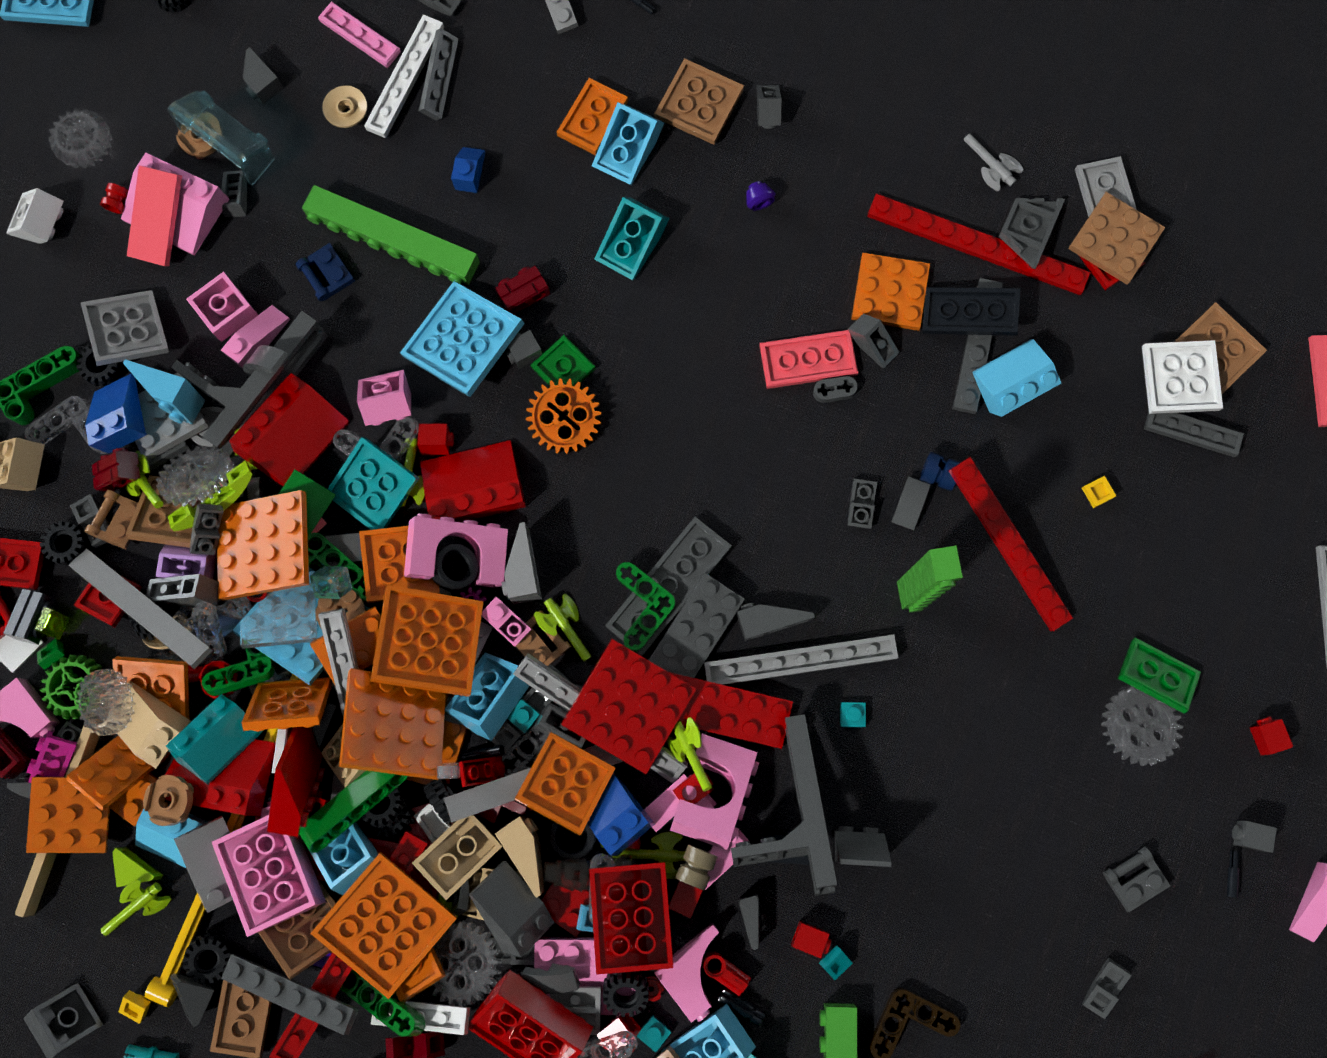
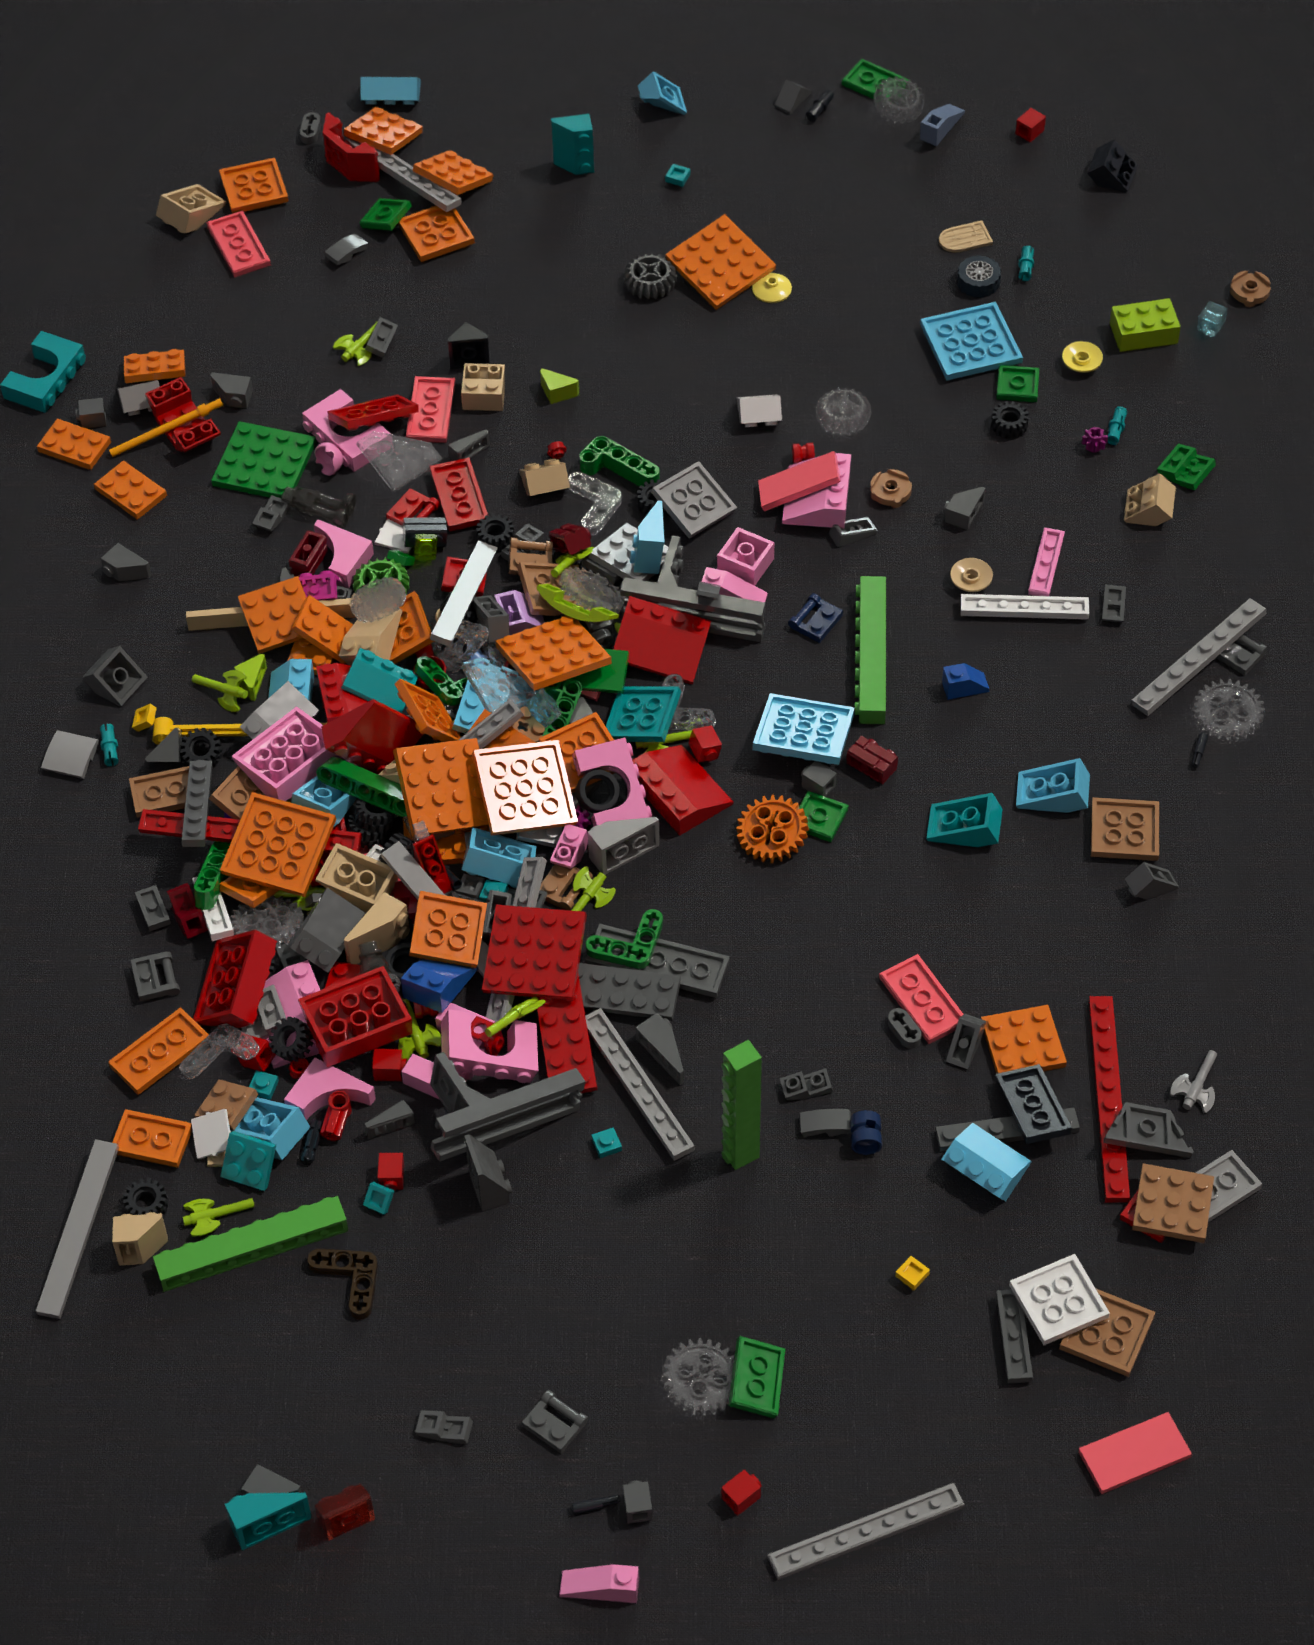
camera: 65 degrees right, 25 degrees down
(115, 416) = (611, 520): blue slope -> none
(181, 803) = (325, 672): medium nougat plate -> none
(205, 529) = (548, 610): dark grey slope -> none
(223, 133) = (890, 496): clear light blue windscreen -> none
(384, 398) = (721, 692): bright pink brick -> none
(438, 74) = (1039, 629): dark grey plate -> none
(555, 980) = (280, 979): dark grey slope -> none
(590, 116) = (1057, 748): orange plate -> none
(696, 867) = (417, 1049): dark tan wheel -> none
(759, 196) = (1057, 904): dark purple cone -> none
(1010, 544) = (822, 1208): red plate -> none

